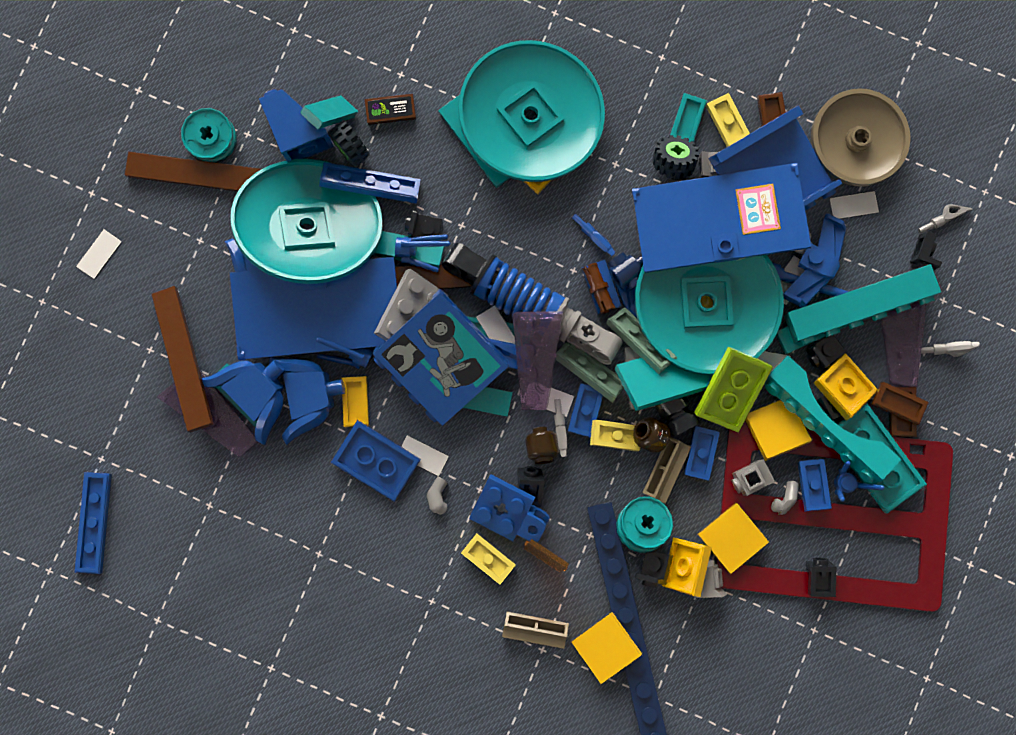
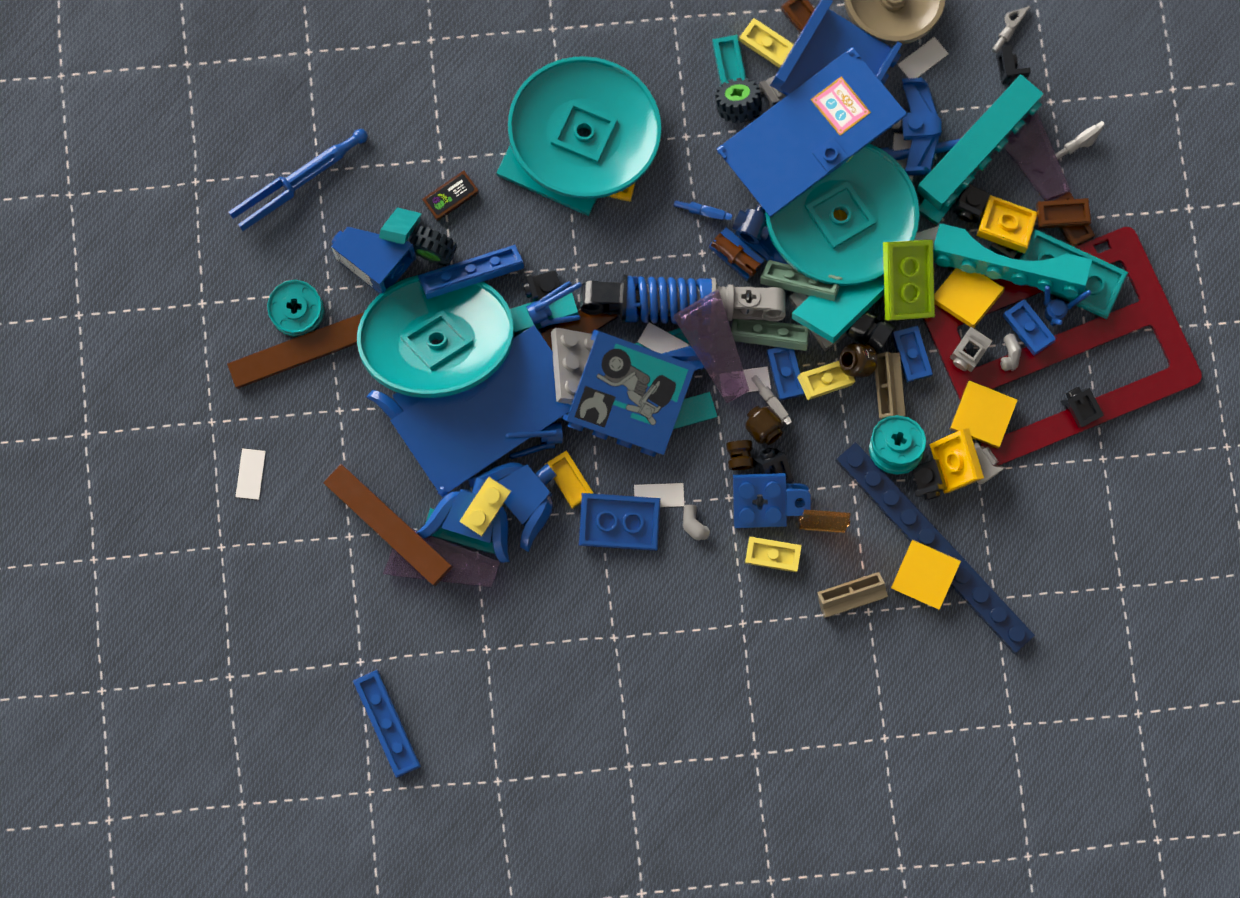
camera: 30 degrees left, 5 degrees down
(264, 389) = (485, 506): none -> light yellow plate
(266, 28) = (295, 180): none -> blue piece
(509, 454) = (740, 455): none -> dark brown wheel

